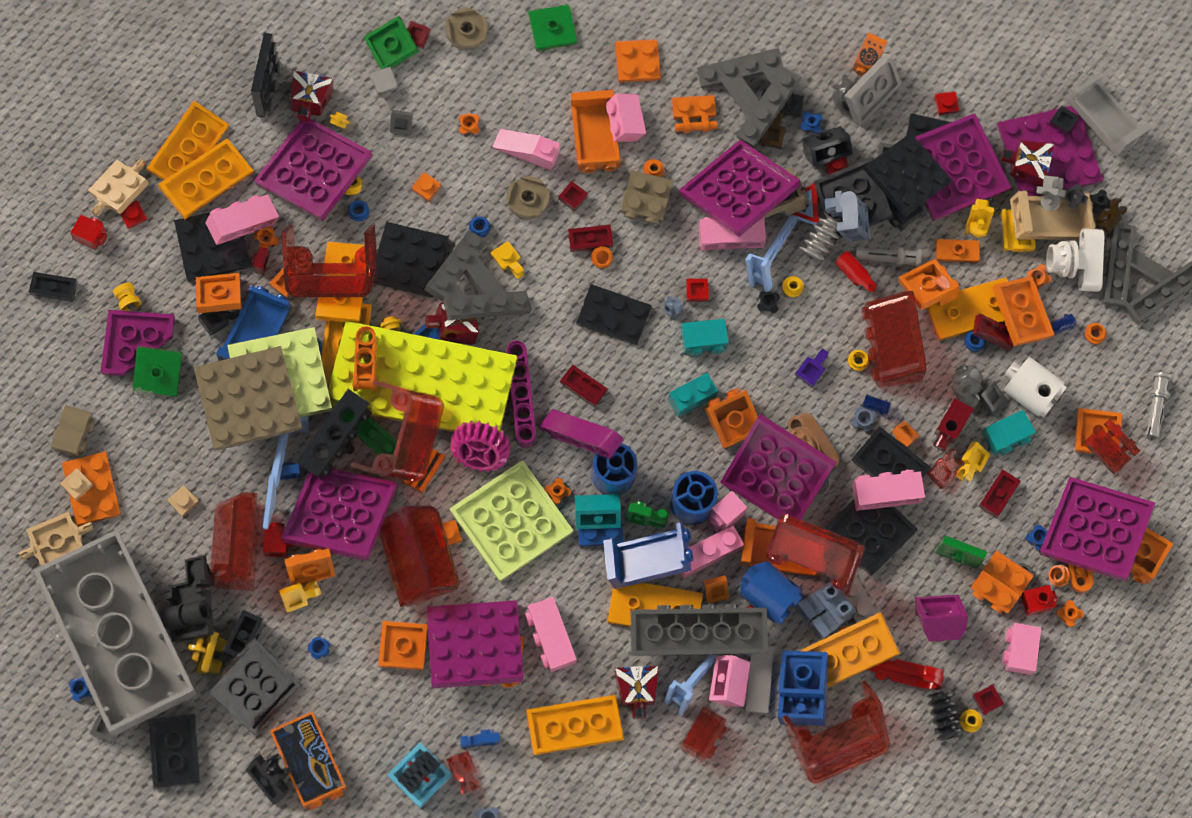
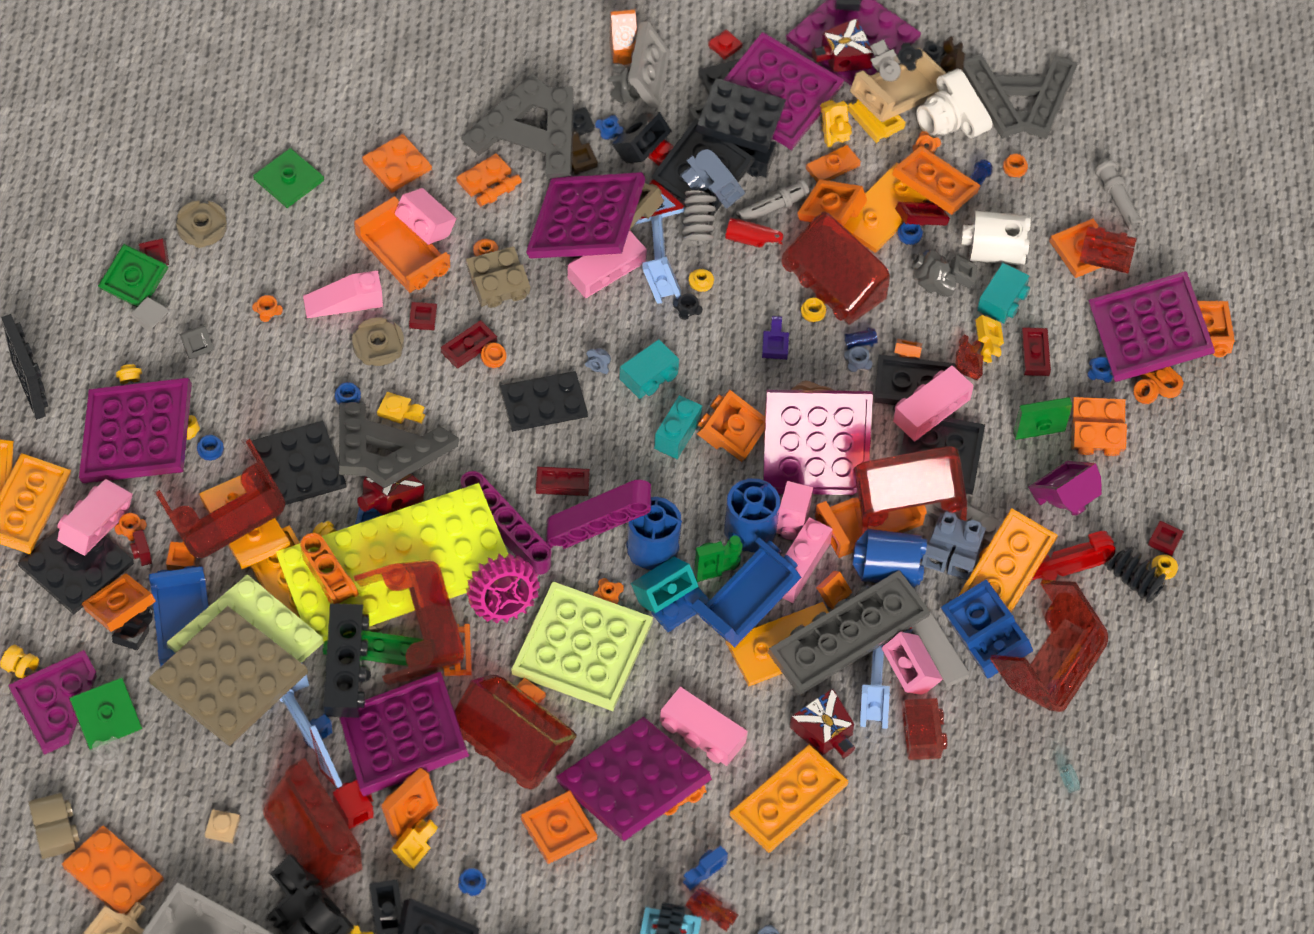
camera: 30 degrees left, 15 degrees down
(76, 484) = (96, 872): tan plate -> none
(310, 94) = (79, 365): torso -> none
(426, 186) = (265, 388): orange plate -> none
(697, 290) = (610, 333): red plate -> none
(957, 412) = (946, 295): dark red torso -> none
(1022, 648) = (1162, 473): bright pink brick -> none
(1039, 600) = (1145, 422): red brick -> none
(1070, 607) = (1178, 424): orange plate -> none

